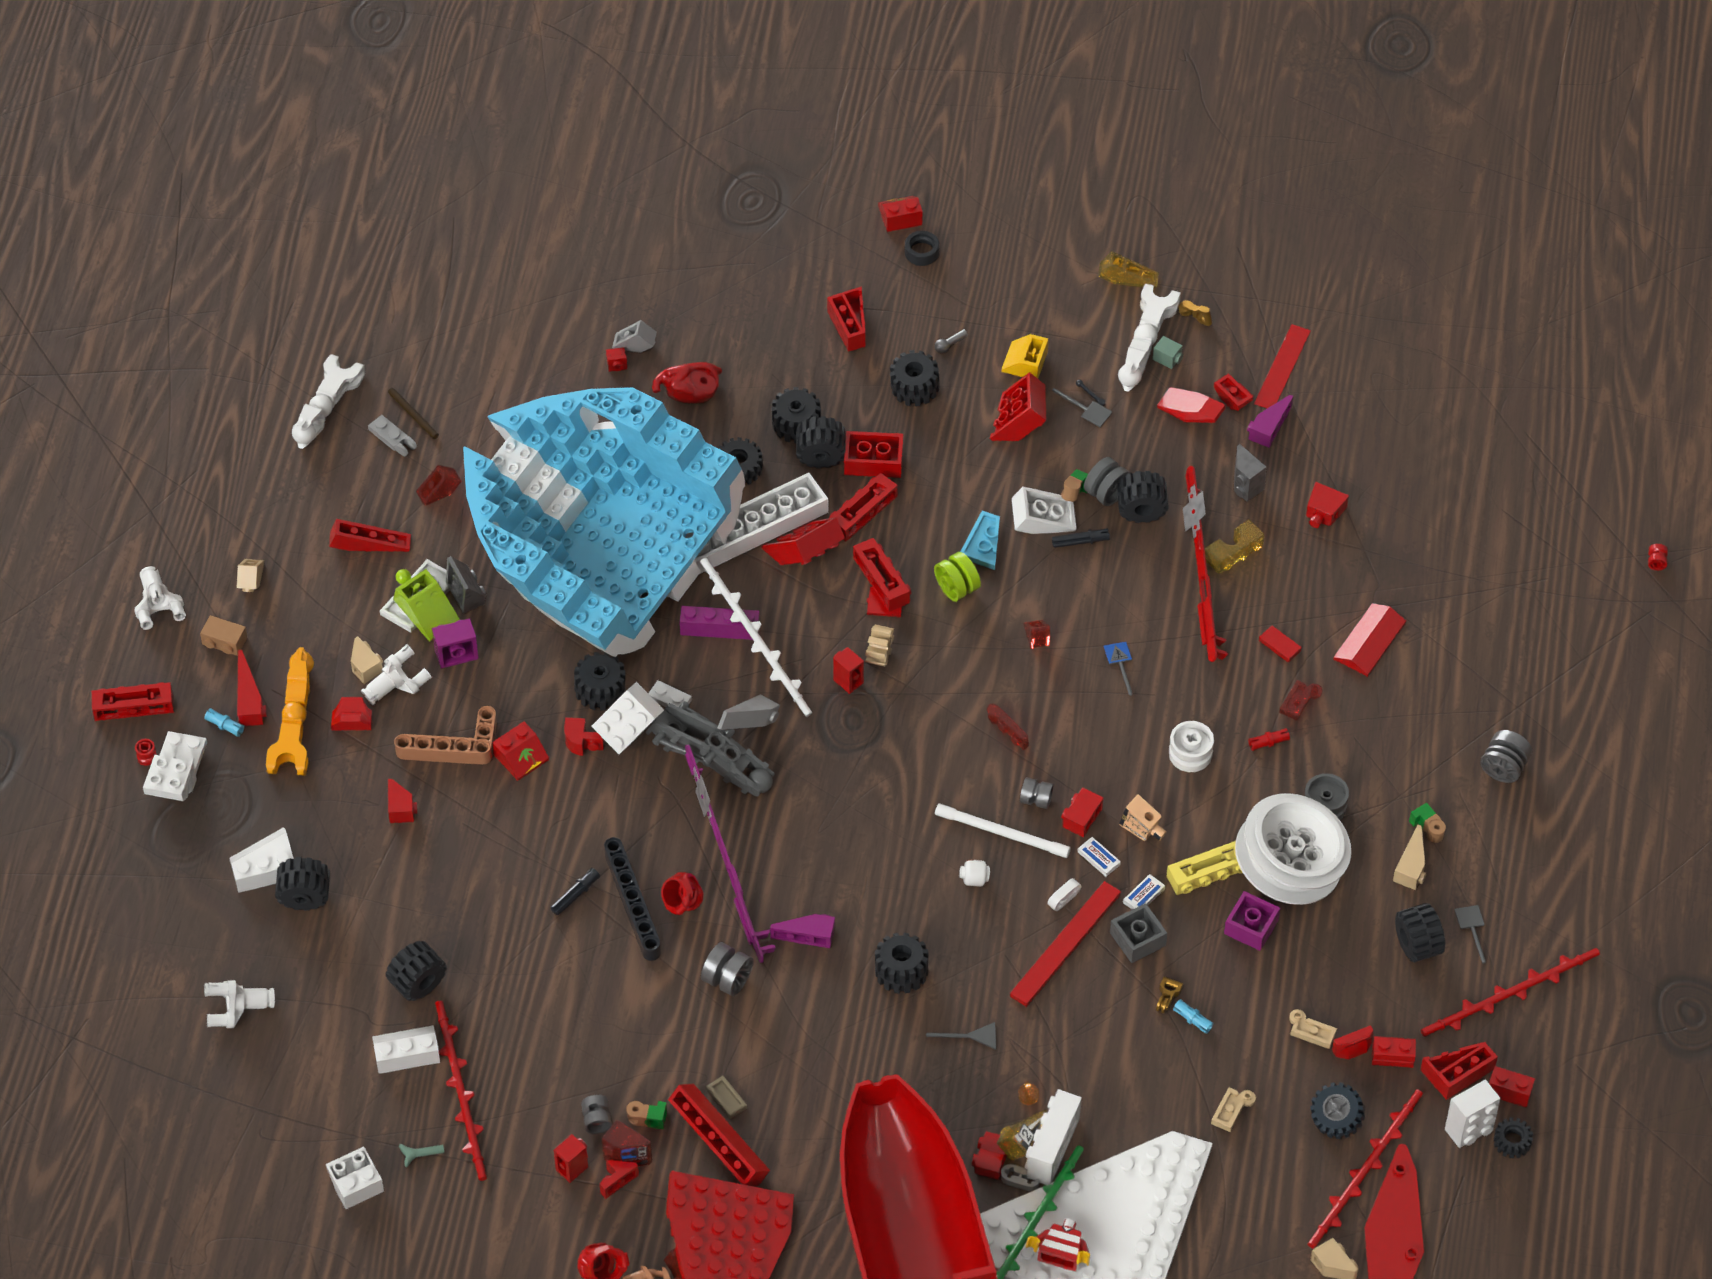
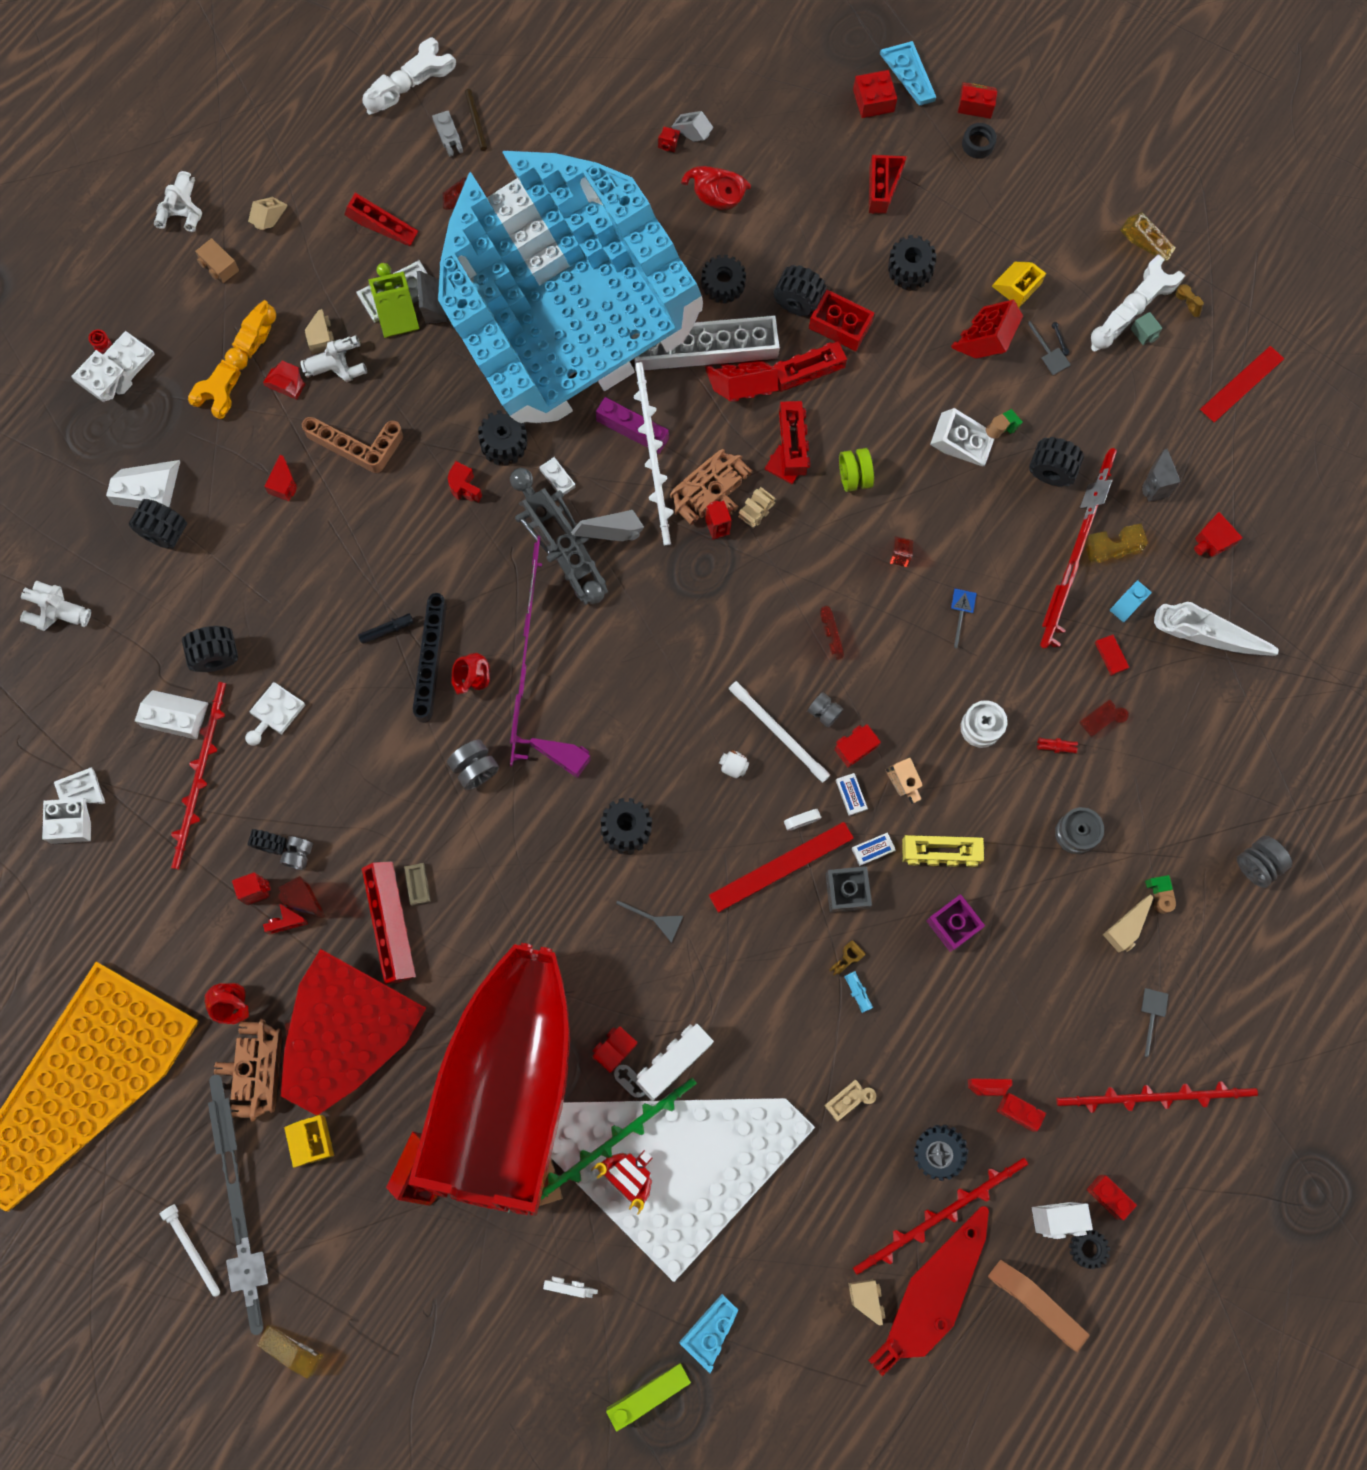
camera: 20 degrees right, 20 degrees up
(132, 701) = (88, 285): red brick -> none
(224, 722) = (178, 341): medium azure pin -> none
(249, 703) = (207, 329): red slope -> none
(348, 1141) = (80, 785): none -> white wing
(411, 1153) = (128, 817): sand green piece -> none
(455, 643) = (398, 350): magenta brick -> none
(504, 1004) = (275, 709): none -> white plate
(520, 751) = (405, 475): red slope -> none
(563, 1114) = (266, 841): none -> black tyre
(627, 718) = (502, 487): white brick -> none
(647, 1115) = (340, 873): leg -> none
(792, 409) = (792, 249): black wheel -> none
(799, 244) = (875, 93): none -> red brick
(818, 635) = (714, 476): none -> nougat piece
(821, 210) = (910, 71): none -> medium azure wing
(943, 345) = (953, 240): flat silver bar -> none
(983, 540) = (896, 443): medium azure wing -> none
(1019, 1136) = (646, 1045): clear yellow slope -> none
(1028, 1093) = (677, 1001): clear orange tile -> none
(1081, 538) = (984, 476): black axle -> none
(1103, 481) = (1030, 431): dark grey wheel -> none
(1191, 406) = (1142, 389): piece -> none
(1232, 392) = (1186, 391): red slope -> none
(1268, 423) = (1205, 433): magenta slope -> none
(1273, 591) = (1130, 601): none -> medium azure brick
(1293, 849) = (1056, 878): white wheel -> none
(1311, 1030) = (957, 1053): tan hinge -> none
(1355, 586) = (1206, 628): none -> white piece
(1370, 638) = (1195, 684): red slope -> none
(1420, 932) = (1101, 1007): black wheel -> none
(1459, 1069) = (1070, 1159): red wedge -> none
(1492, 1190) = (1039, 1304): none -> nougat beam

